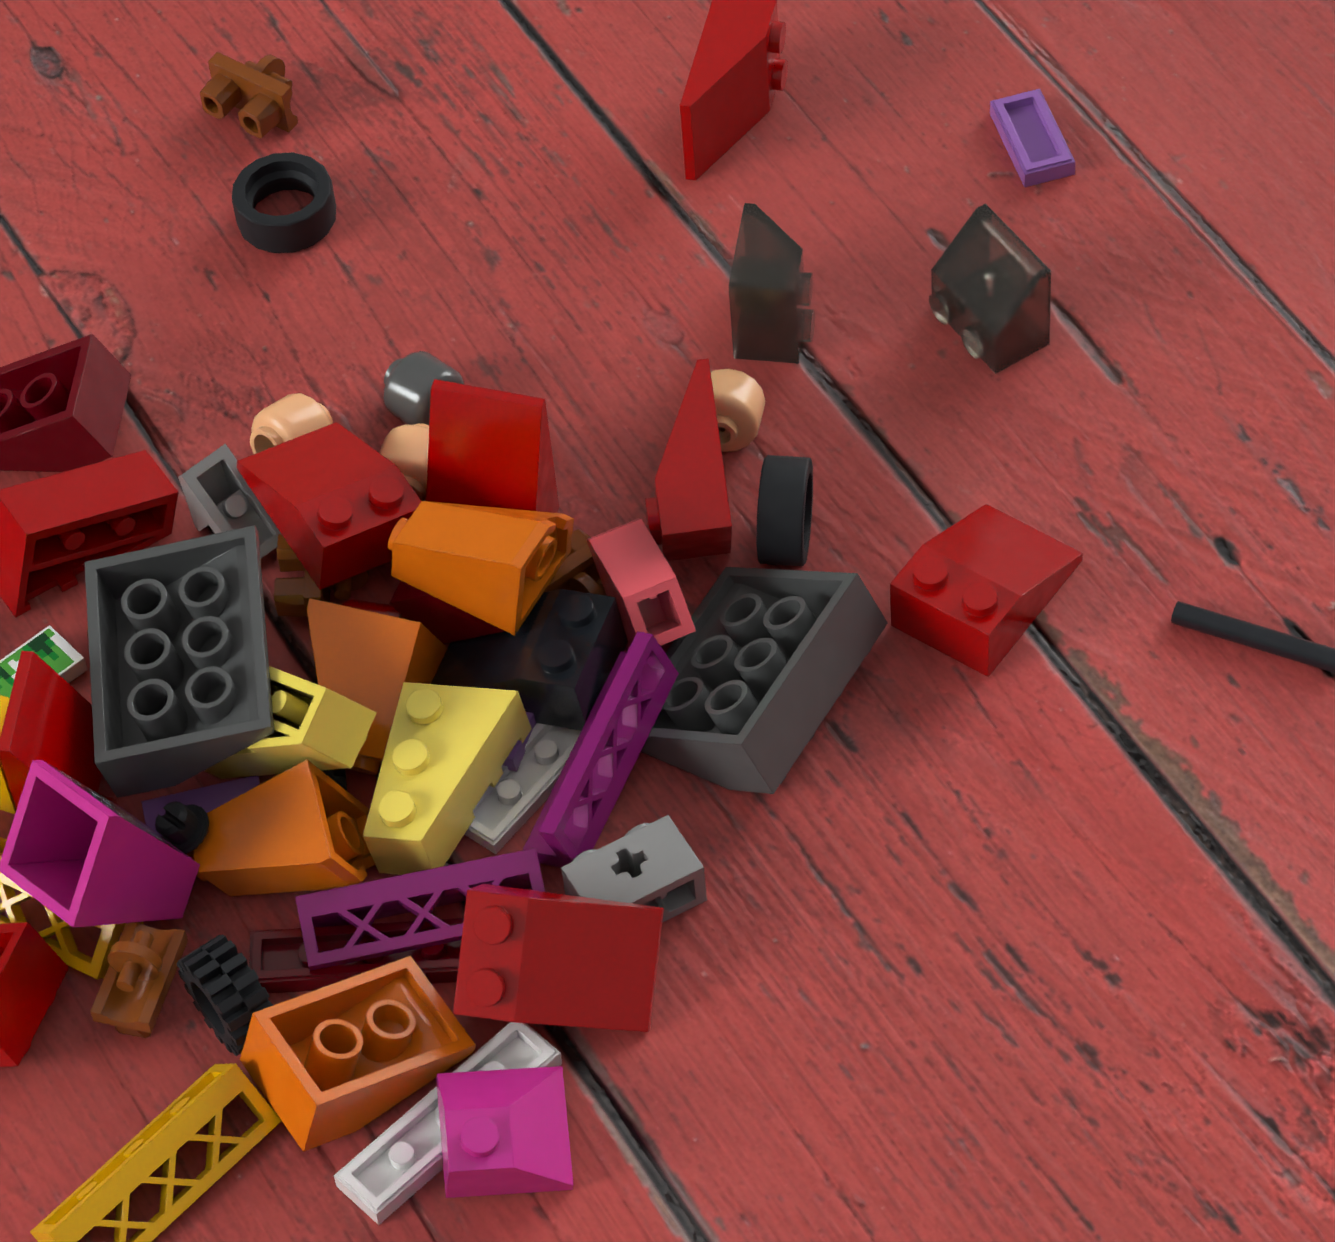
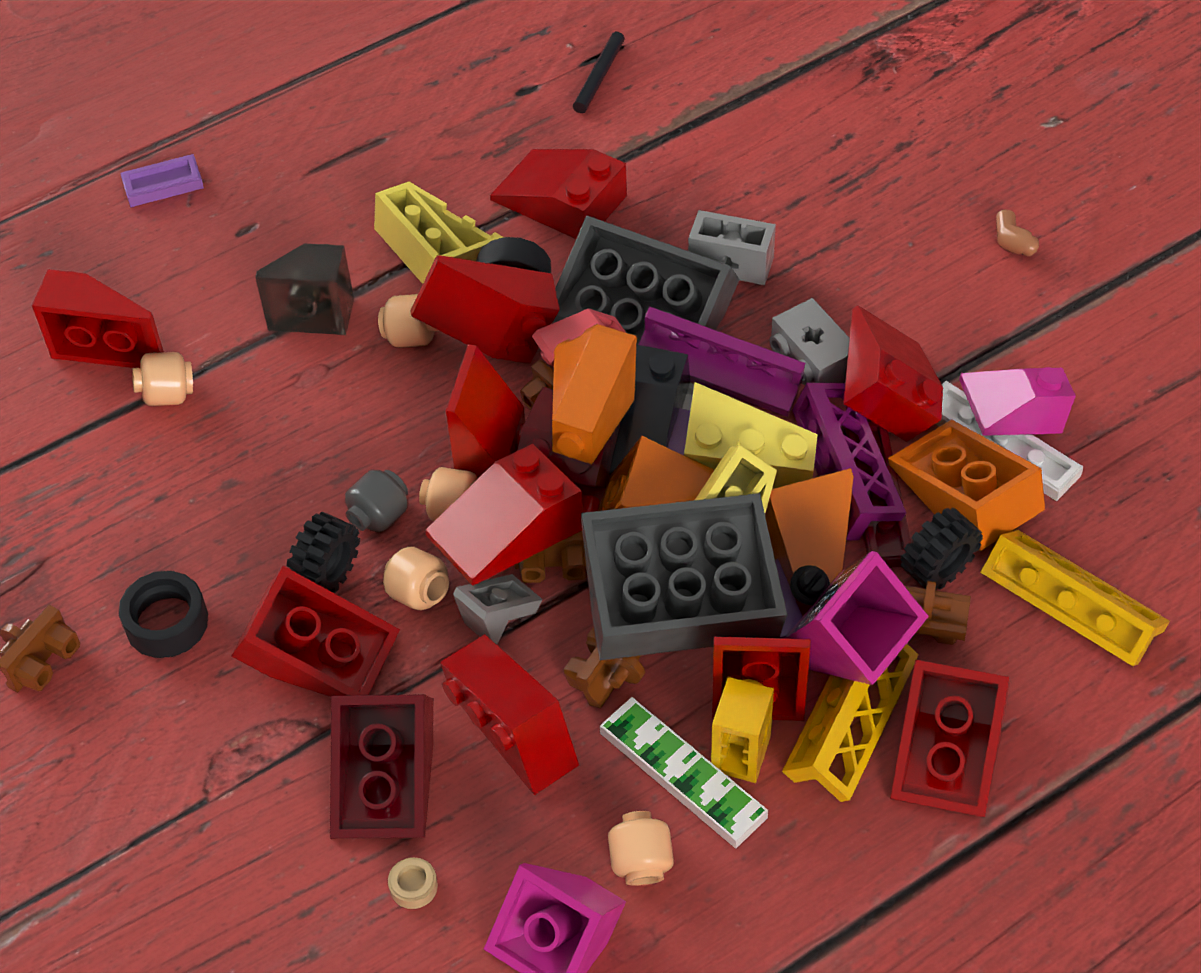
camera: 95 degrees left, 0 degrees up
(219, 340) = (315, 638): none -> red slope
(326, 332) = (325, 550): none -> black tyre
(648, 165) = (163, 378): none -> light nougat head
(825, 777) = (736, 242): none -> light grey brick
(856, 1175) = (1013, 237): none -> nougat arm
(866, 422) = (422, 228): none -> light yellow wedge
(993, 292) = (322, 175): clear smoke slope -> none

